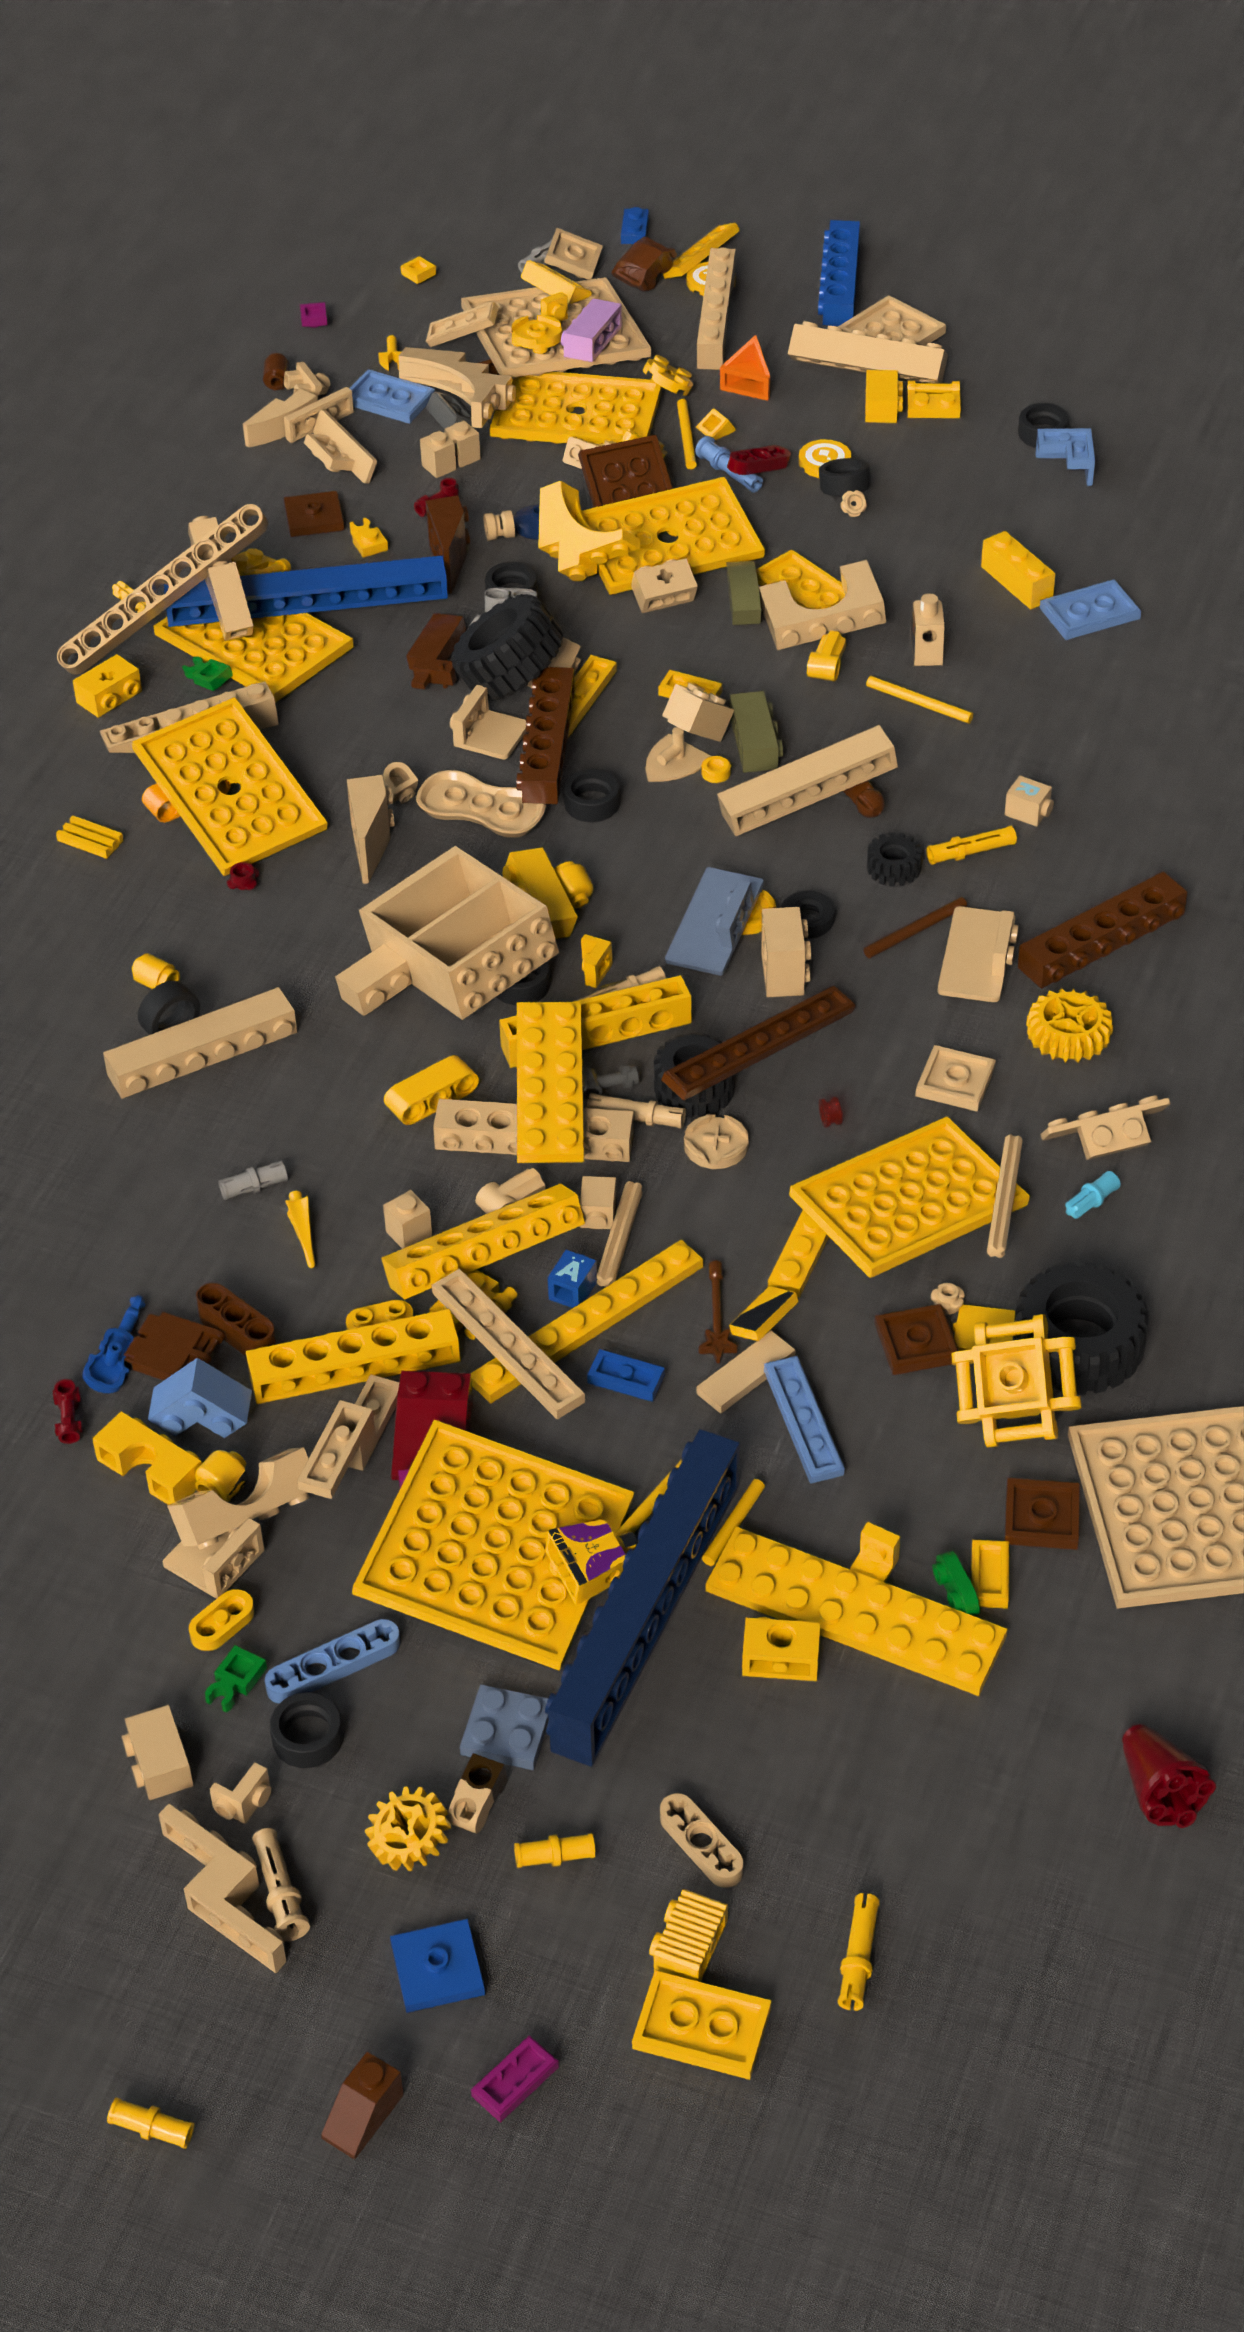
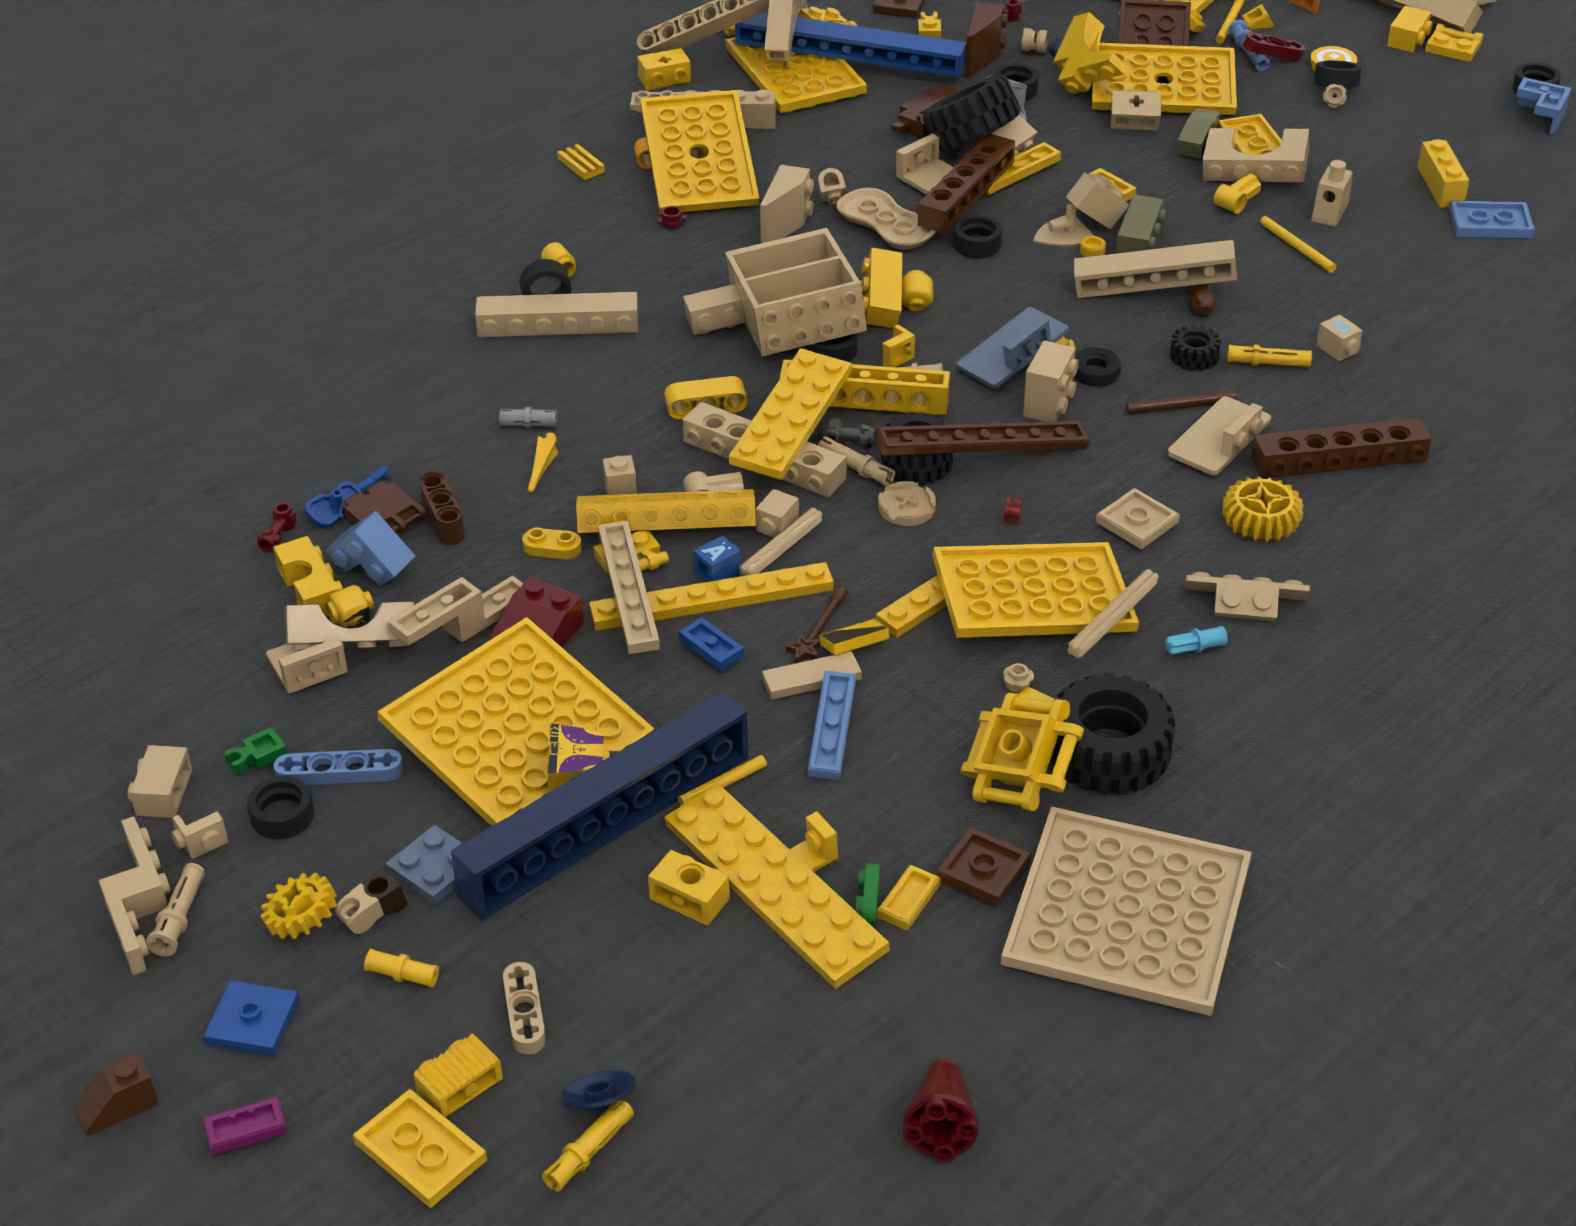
camera: 25 degrees right, 5 degrees down
(209, 674) = (744, 80): green plate -> none
(219, 1621) = (277, 707): yellow plate -> none
(352, 1356) = (501, 556): yellow brick -> none
(835, 1892) = (598, 1090): none -> dark blue dish
(916, 1339) = (966, 694): reddish brown plate -> none

